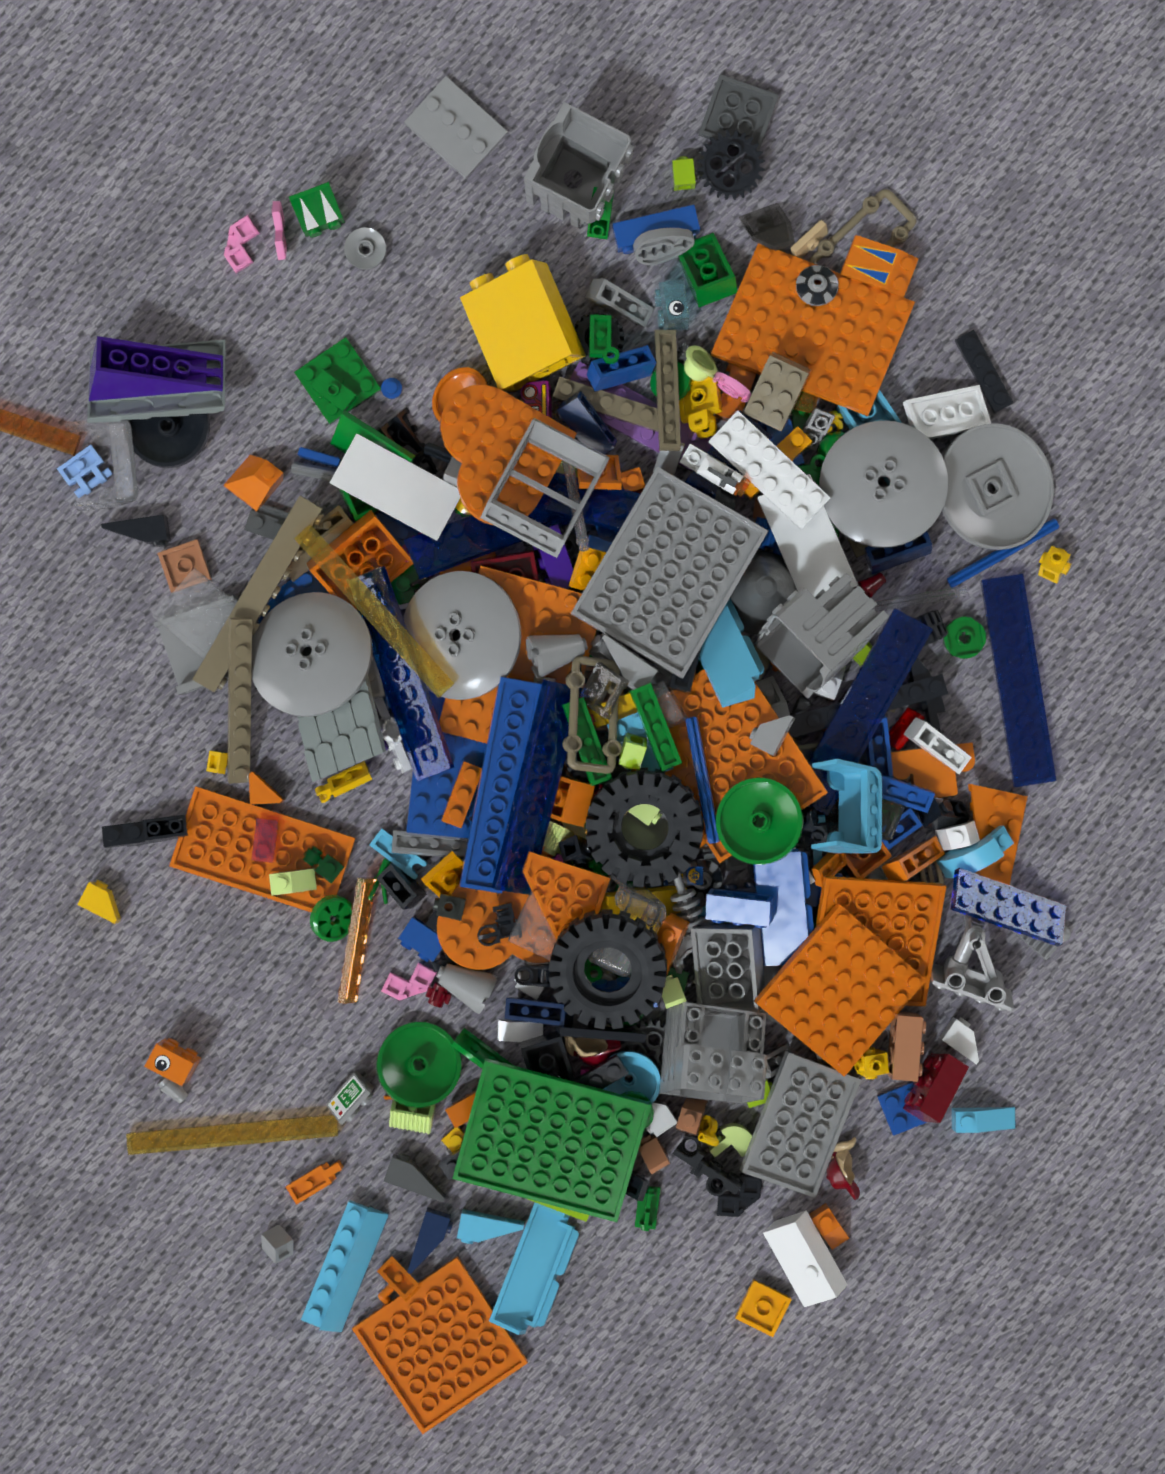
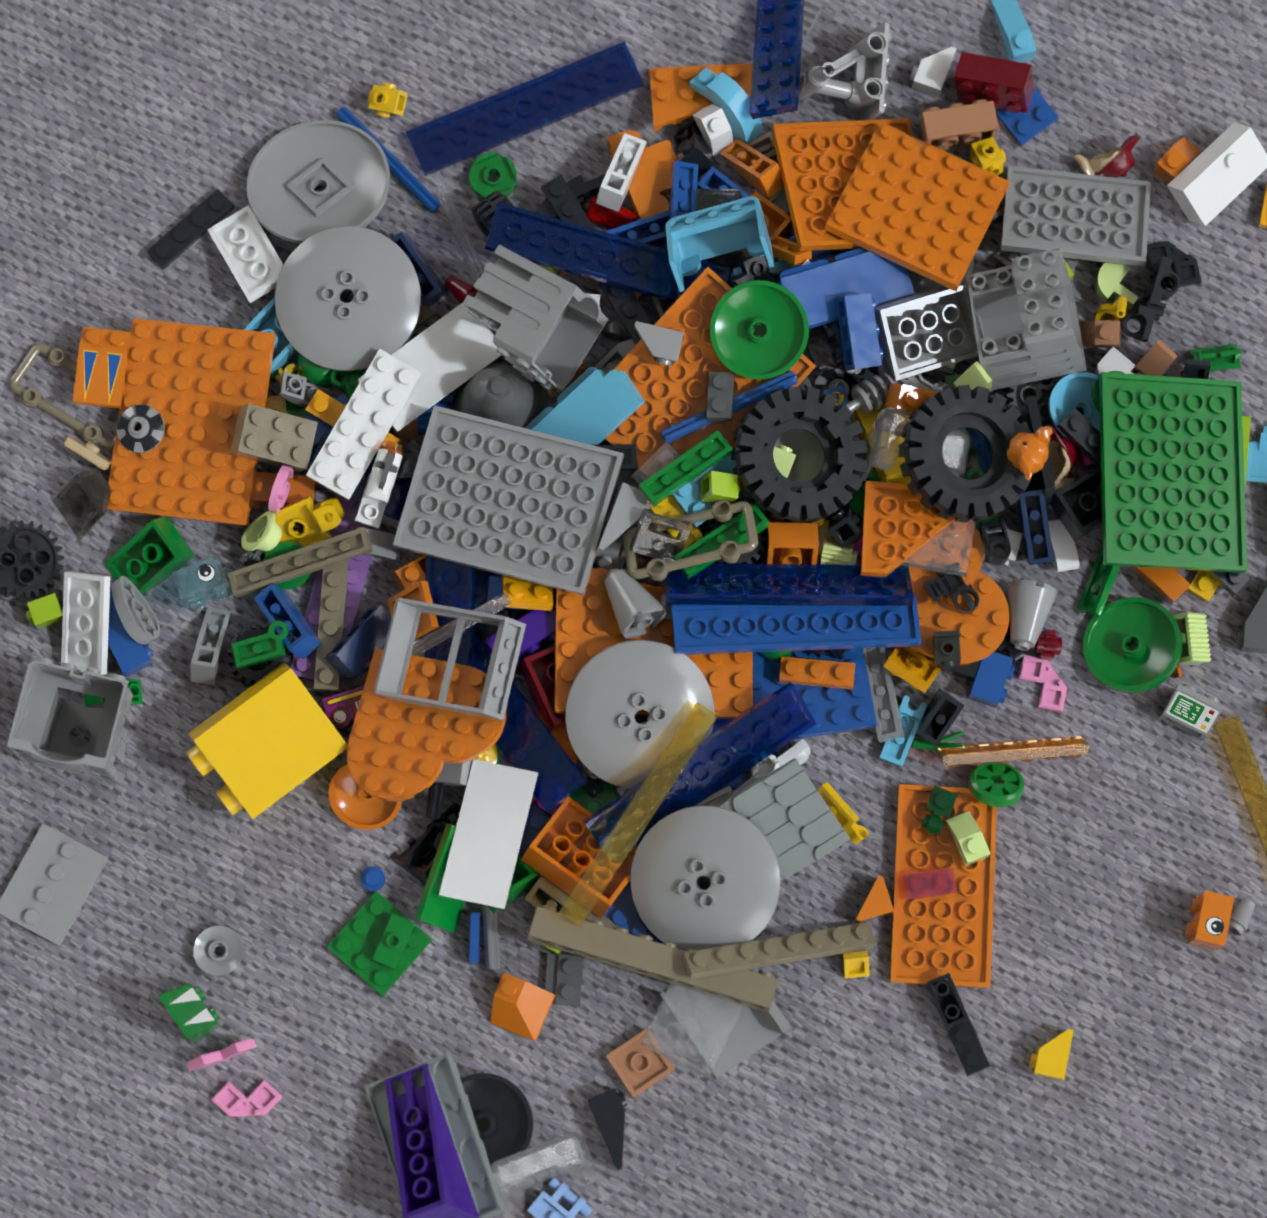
camera: 110 degrees left, 10 degrees down
(588, 1022) = (1030, 457): none -> orange hair
(662, 201) = (85, 620): none -> white plate
(712, 773) = (720, 396): none -> dark grey plate

